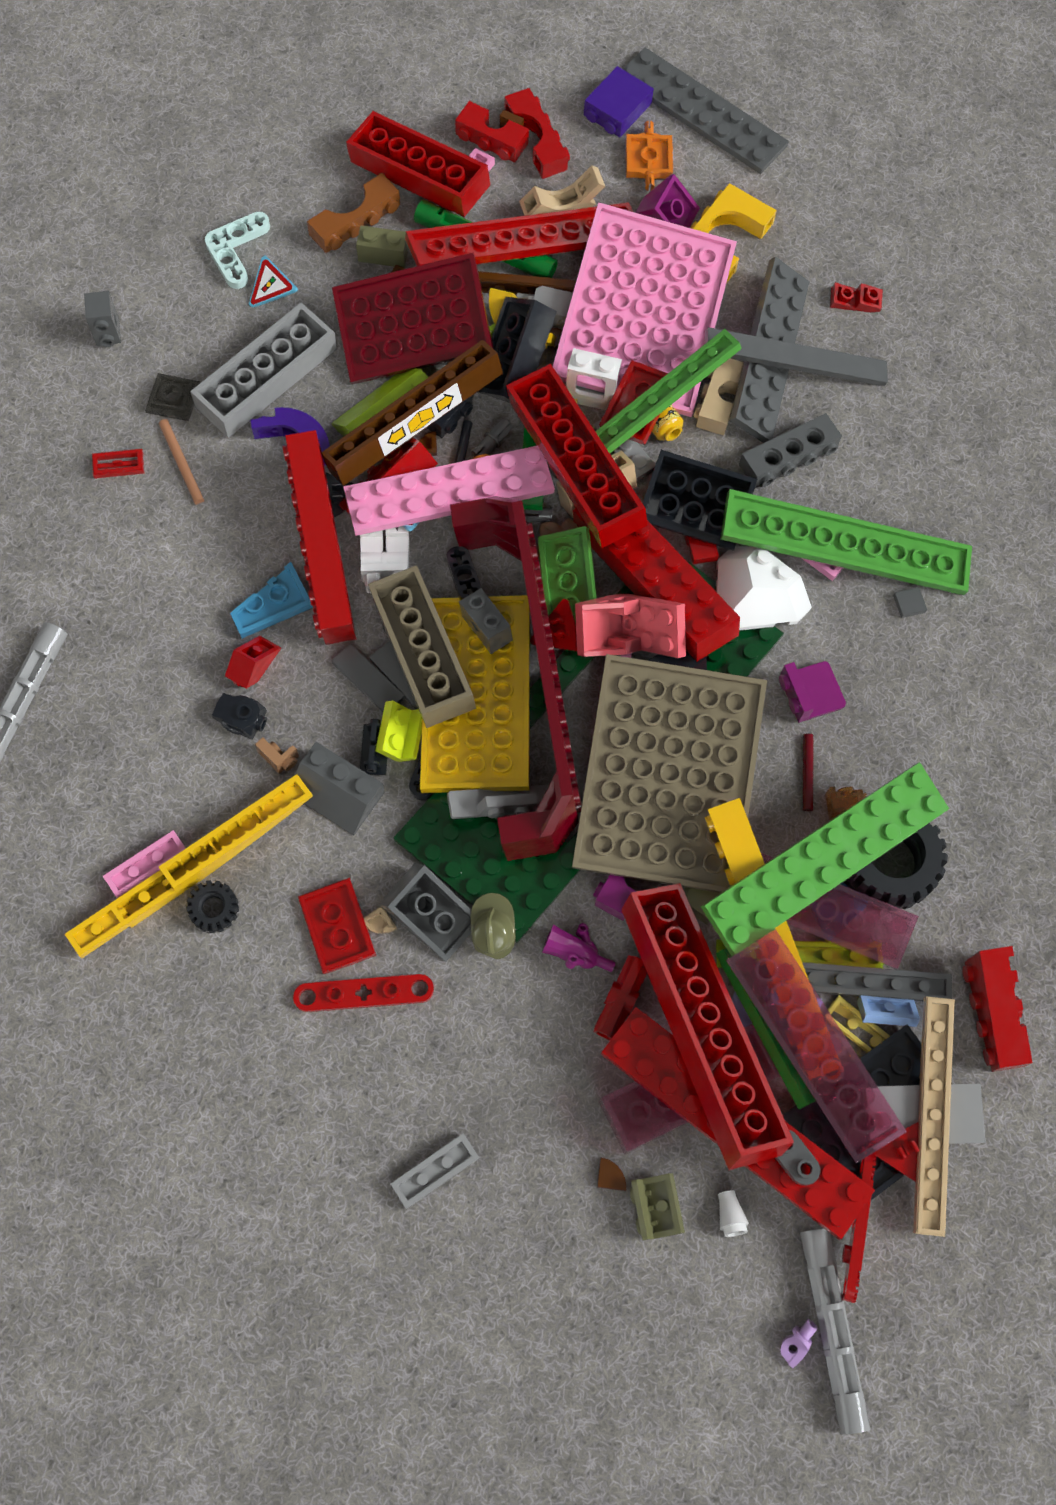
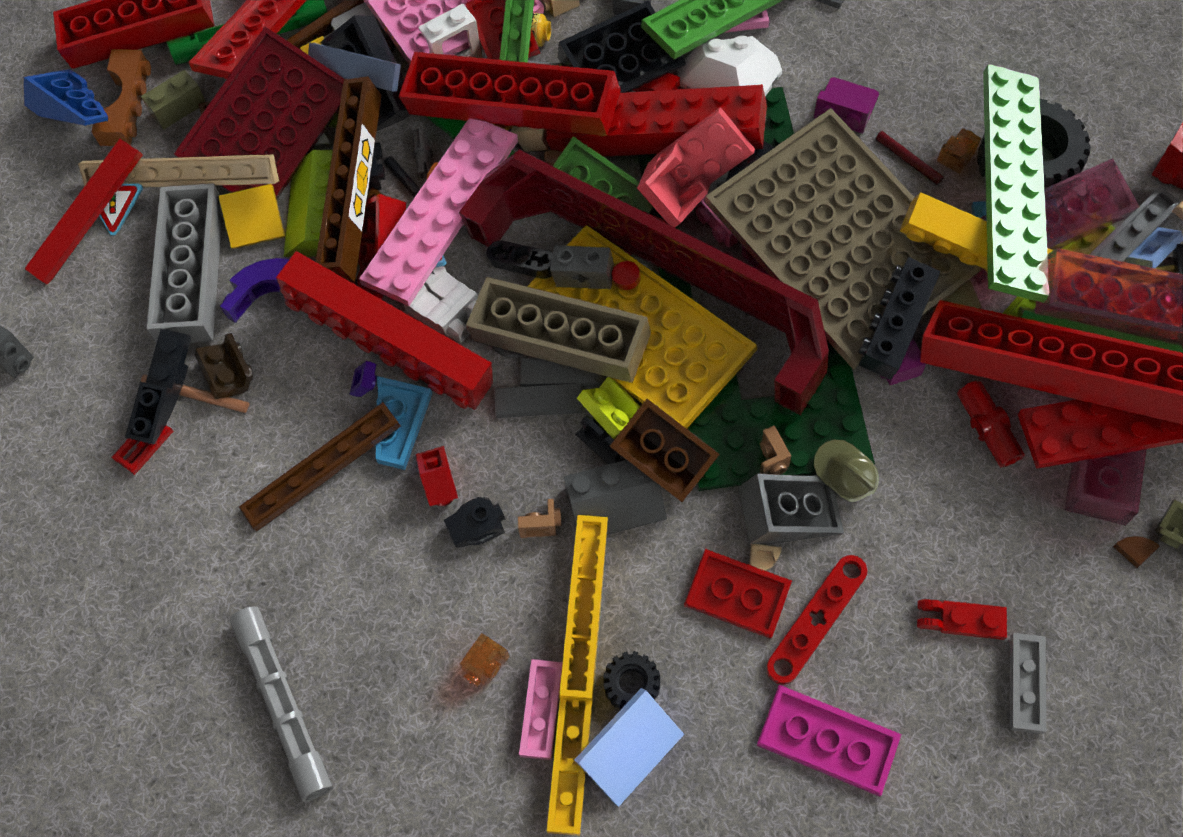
camera: 40 degrees left, 5 degrees down
(147, 800) = (483, 660): none -> clear orange brick
(160, 440) = (162, 387): none -> black slope
(163, 940) = (629, 747): none -> light blue tile
(177, 407) = (128, 367): clear smoke piece -> none
(195, 584) = (319, 467): none -> reddish brown tile
(211, 463) = (225, 368): none -> dark brown bracket
(225, 248) = (40, 206): light aqua beam -> none
(244, 273) = (83, 211): none -> red tile
(281, 1068) = (829, 740): none -> dark pink tile
(282, 555) = (363, 379): none -> dark purple plate
(316, 181) = (63, 98): none -> blue wedge
(325, 303) = (196, 170): none -> tan tile
(339, 377) = (251, 216): none -> yellow tile
(389, 790) = (664, 450): none -> reddish brown slope
(450, 1094) = (965, 619): none -> red hinge
(459, 861) = (774, 448): none -> medium nougat bracket
(494, 803) = (747, 381): light grey bracket -> none
(504, 336) = (354, 65): none -> sand blue tile
(508, 655) = (626, 275): none -> red tile
(575, 951) = (917, 427): magenta piece -> none
(632, 865) = (899, 317): none -> black brick

